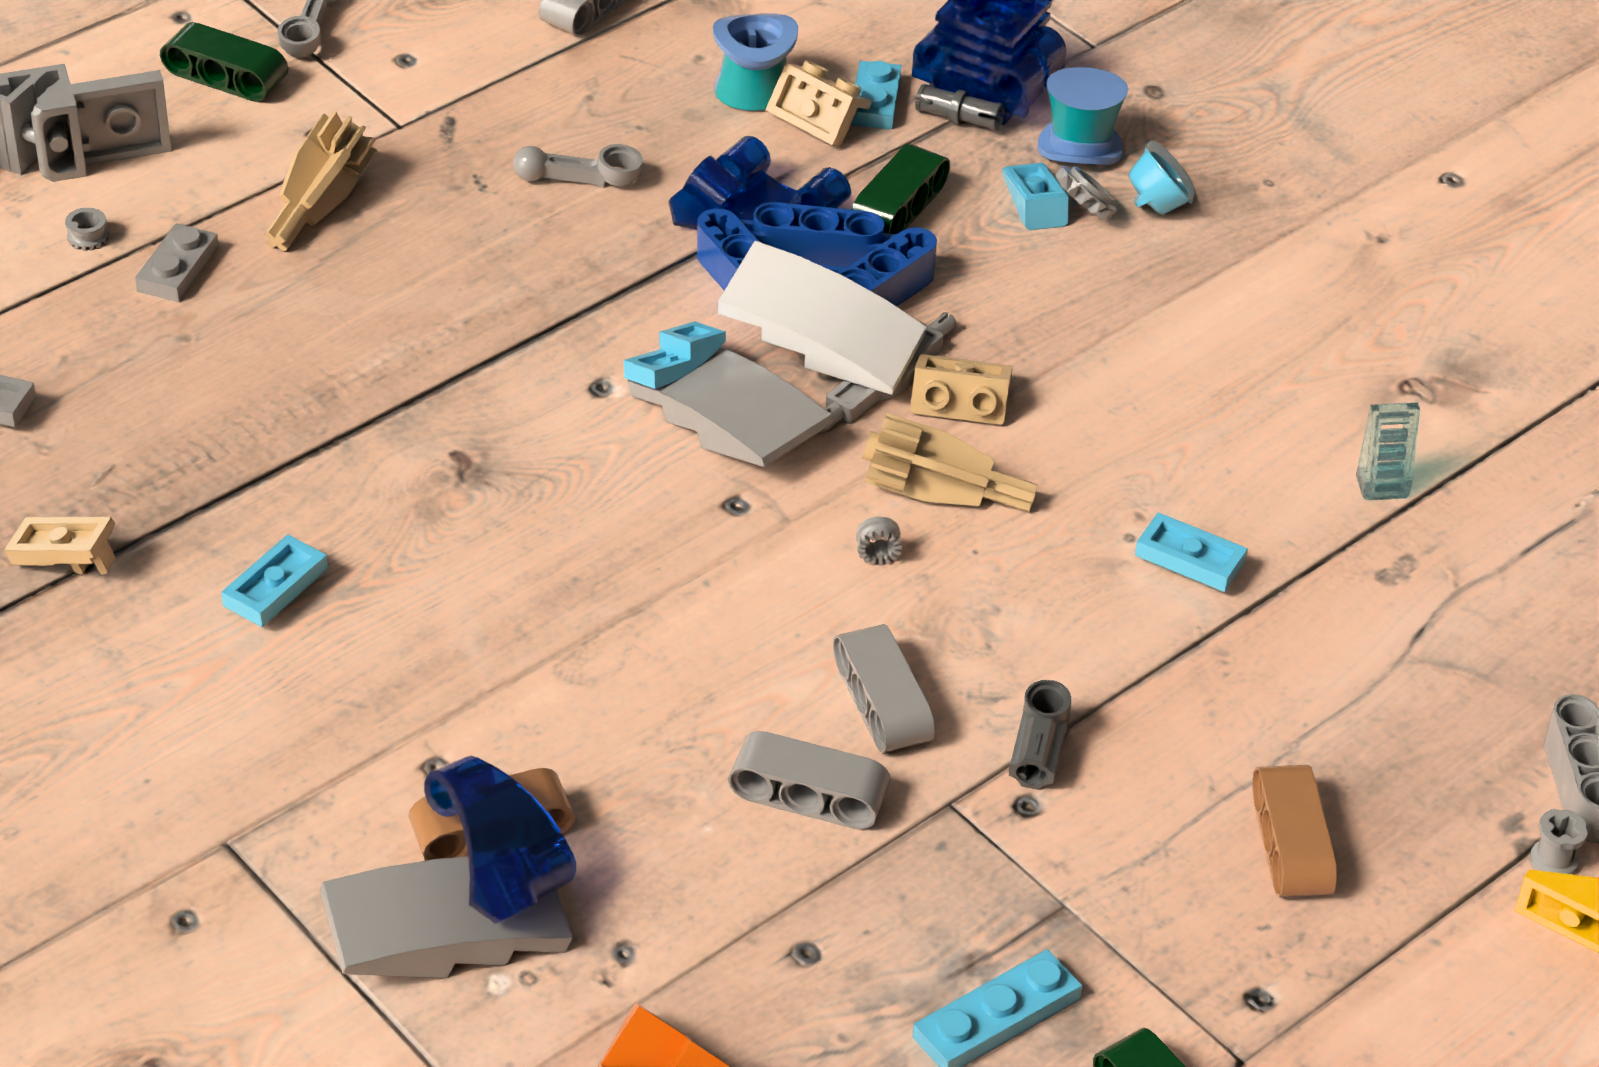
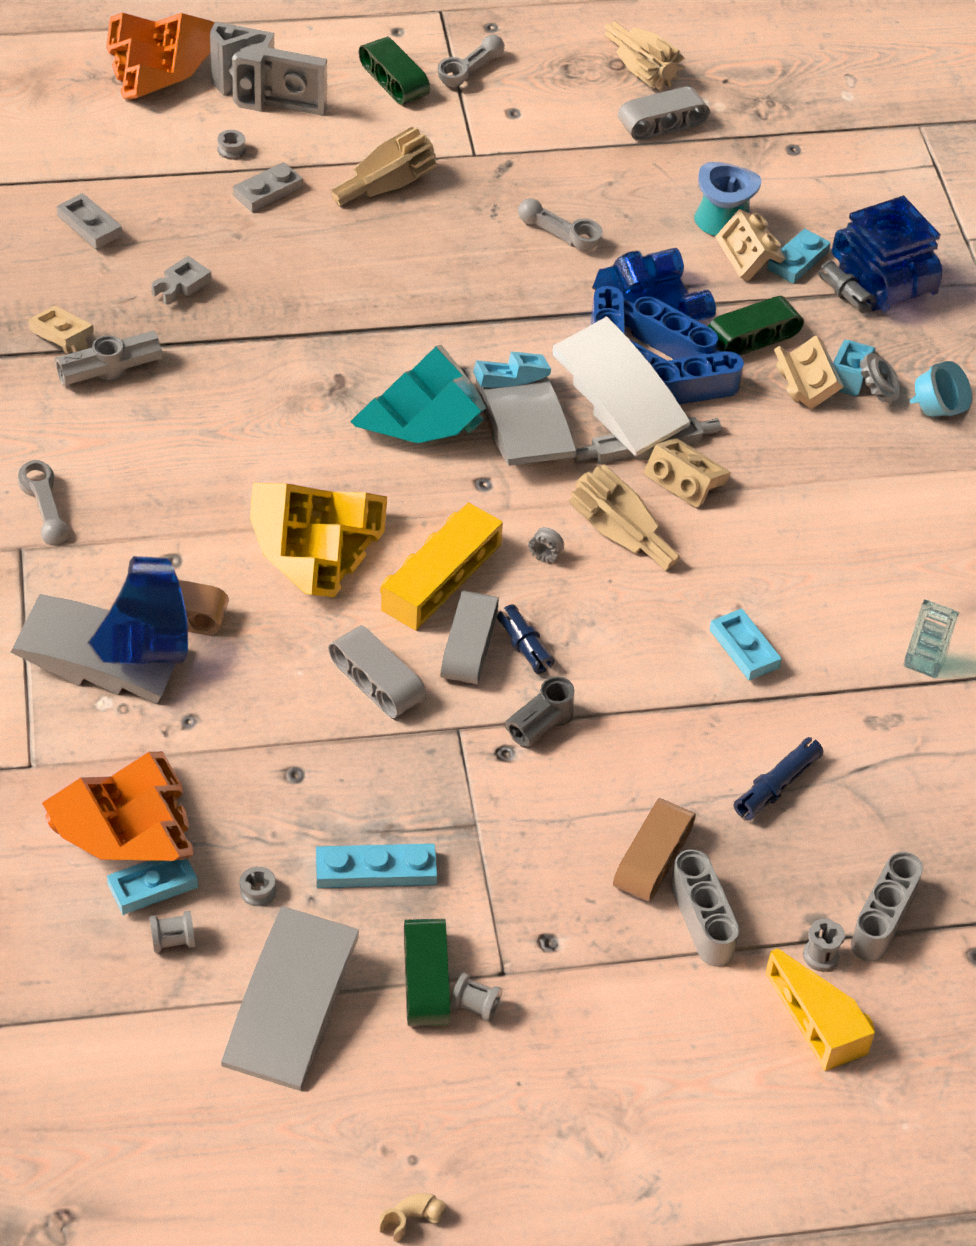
camera: 30 degrees right, 5 degrees up
(153, 553) = (108, 358): none -> light grey piece
(164, 414) = (183, 277): none -> light grey plate
(253, 798) = (54, 529): none -> light grey piece
(274, 580) = (165, 405): medium azure plate -> none
(597, 648) = (315, 532): none -> yellow brick
(603, 435) = (425, 402): none -> teal brick
(779, 620) = (440, 566): none -> yellow brick
(947, 660) = (525, 639): none -> dark blue pin
(1006, 215) = (809, 372): none -> tan bracket
(1083, 116) = (918, 326): medium blue hat -> none
(1351, 697) = (770, 785): none -> dark blue pin
(1403, 868) = (707, 923): none -> light grey beam

